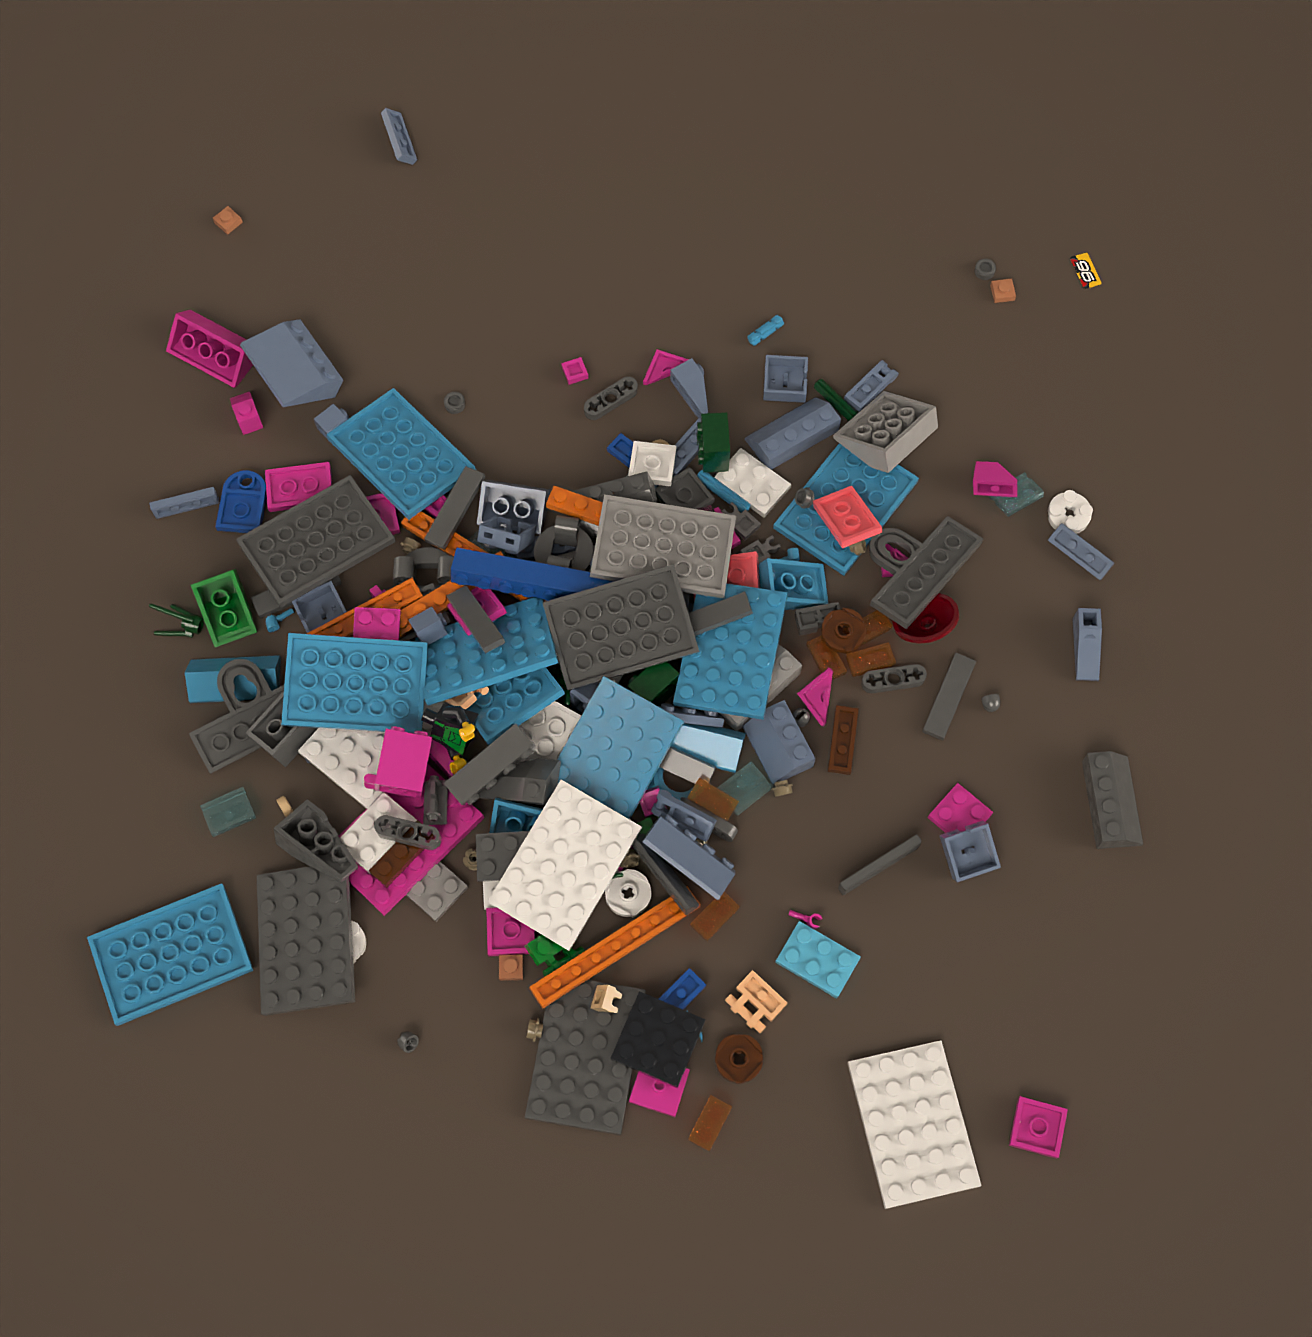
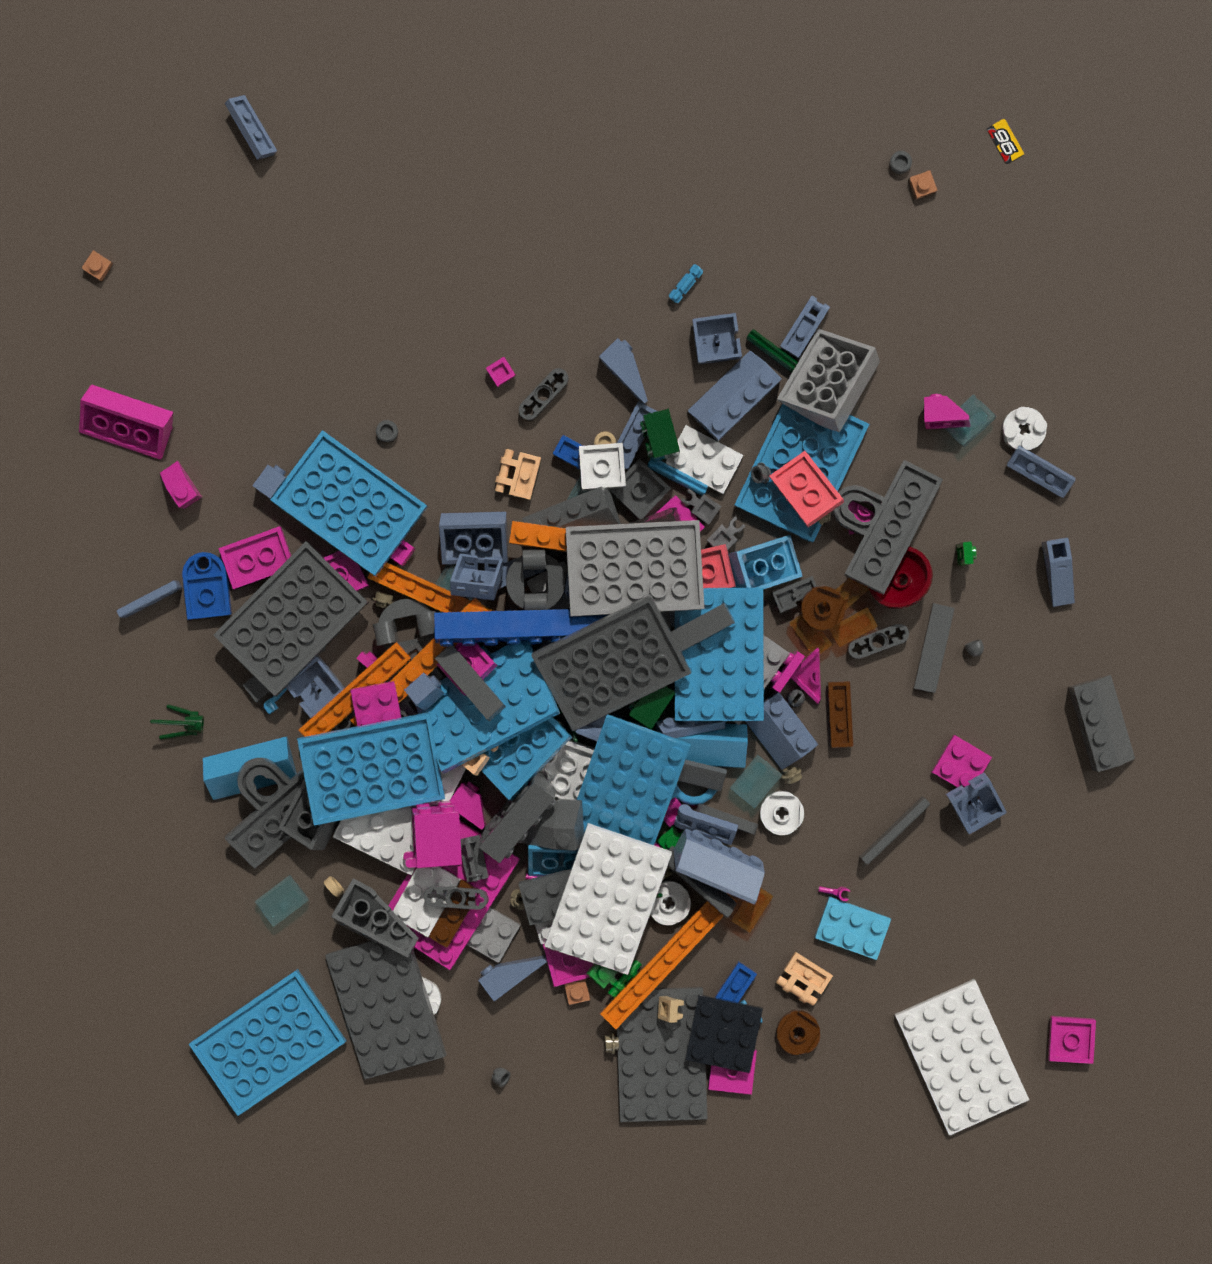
camera: 10 degrees left, 20 degrees up
(224, 607) = (219, 700): green slope -> none
(293, 364) = (214, 430): sand blue slope -> none
(438, 934) = (506, 975): none -> sand blue slope
(453, 729) = (475, 793): torso -> none
(454, 508) = (418, 556): dark grey tile -> none
(575, 463) = (524, 476): none -> light nougat plate
(661, 366) = (589, 345): dark pink tile -> none
(710, 1123) = (783, 1094): clear orange plate -> none
(713, 799) = (730, 802): clear orange plate -> none
(776, 819) = (772, 804): none -> white plate
(792, 555) = (759, 532): dark azure hand -> none
(801, 678) = (790, 665): none -> dark pink plate
(995, 606) = (965, 553): none -> green plate

